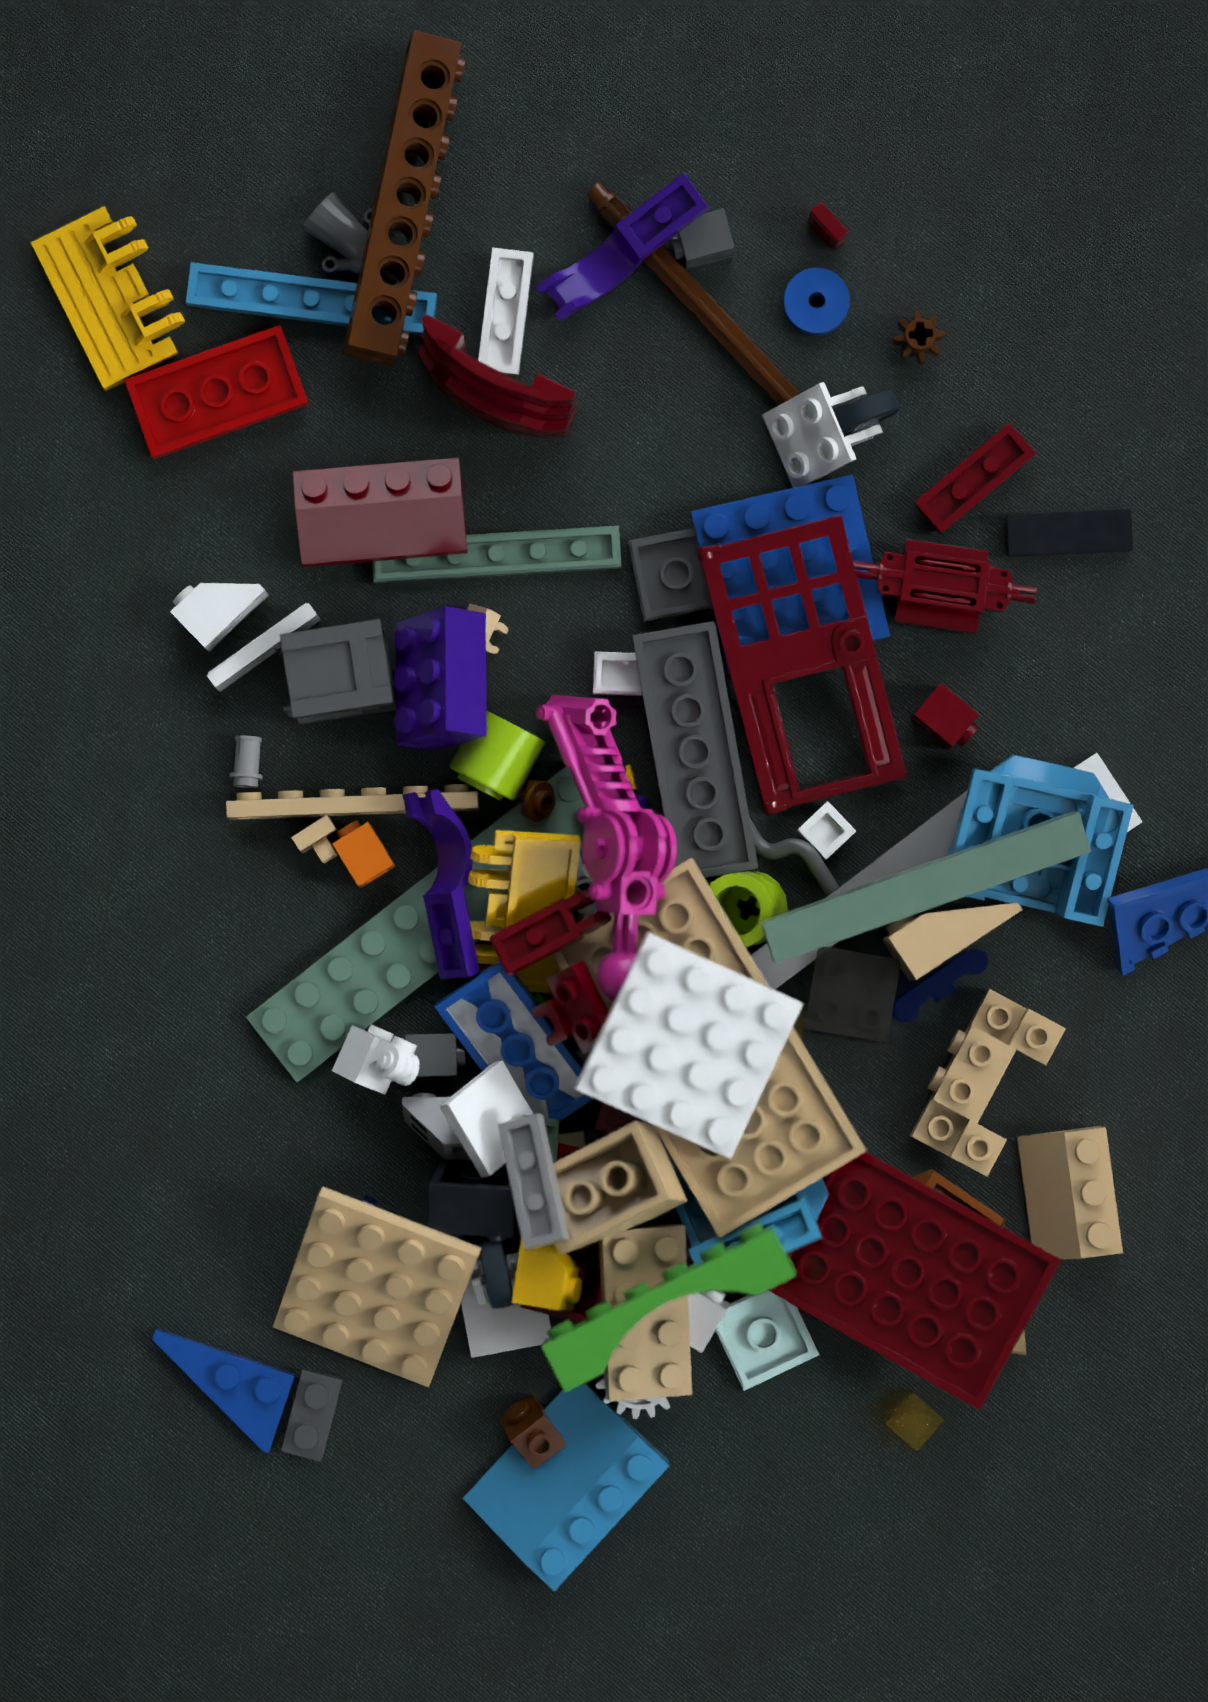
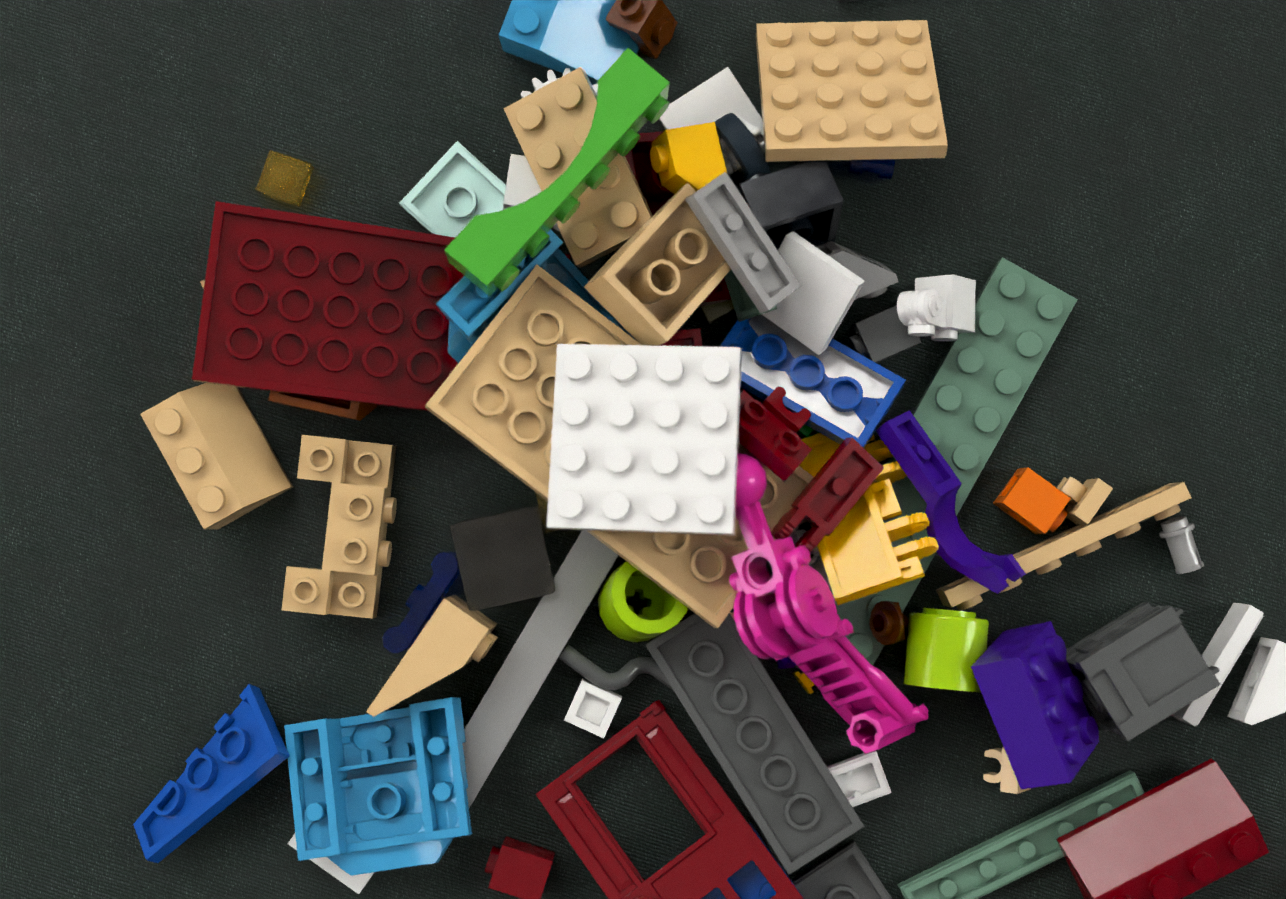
camera: 160 degrees right, 0 degrees up
(925, 886) = (471, 695): sand green tile -> none

